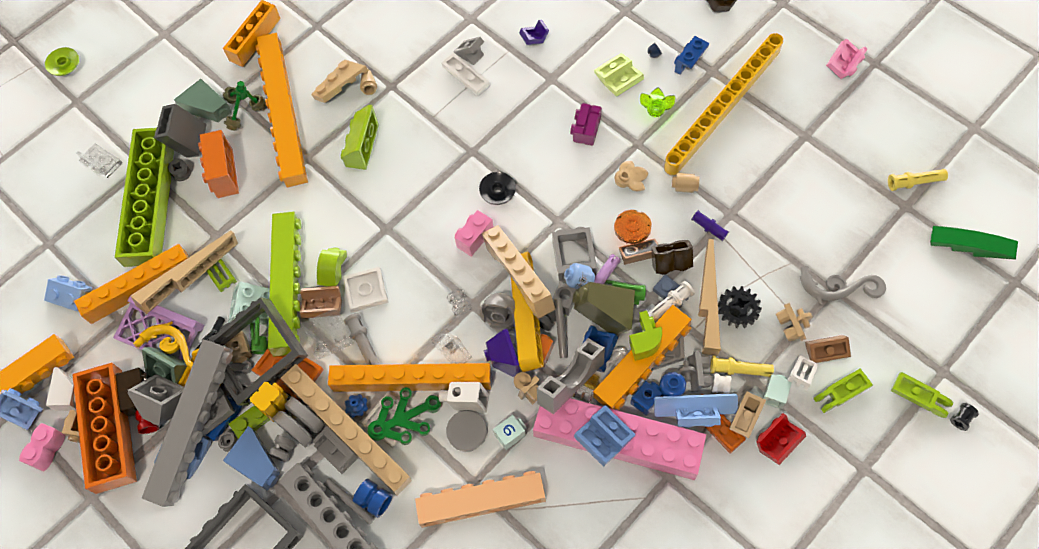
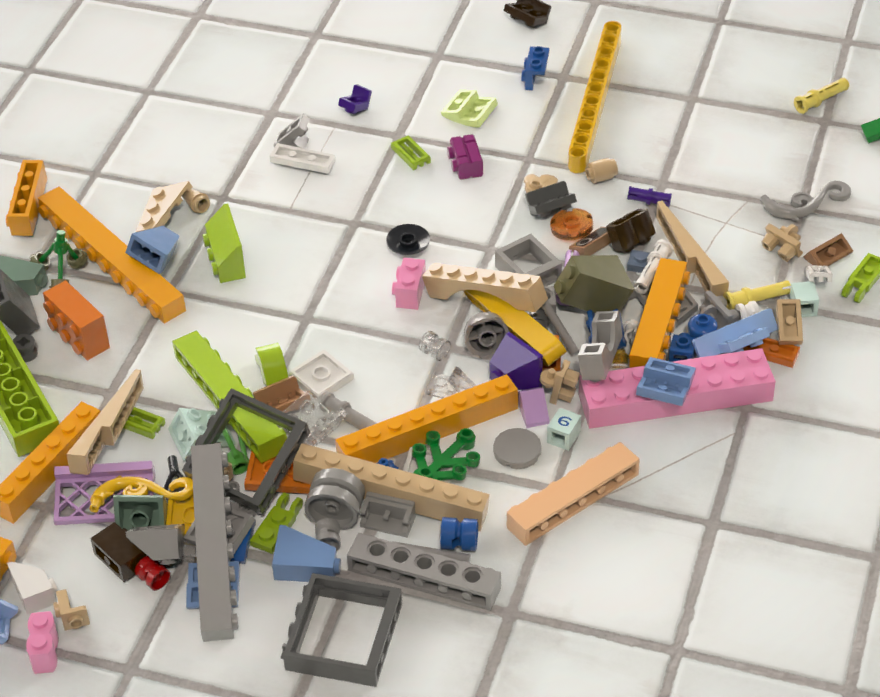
camera: 30 degrees left, 20 degrees down
(103, 430) = (110, 594): orange brick -> none
(224, 437) = (260, 555): light grey plate -> none
(269, 399) = (294, 486): yellow brick -> none
(307, 120) = (153, 247): none -> medium blue slope
(466, 396) = (499, 413): white torso -> none
(500, 394) = (533, 407): none -> lavender slope
(552, 112) = (407, 154): none -> lime tile
(578, 275) = (549, 270): light blue head -> none
(627, 196) = (549, 198): none -> dark grey bracket
(646, 342) = (654, 287): lime brick -> none
(654, 50) = (493, 76): dark blue hinge -> none
(657, 101) = (525, 119): clear neon green plate -> none
(733, 311) = (723, 247): black gear -> none
(780, 439) = (832, 334): red bracket -> none
(846, 59) = (691, 24): bright pink bracket -> none

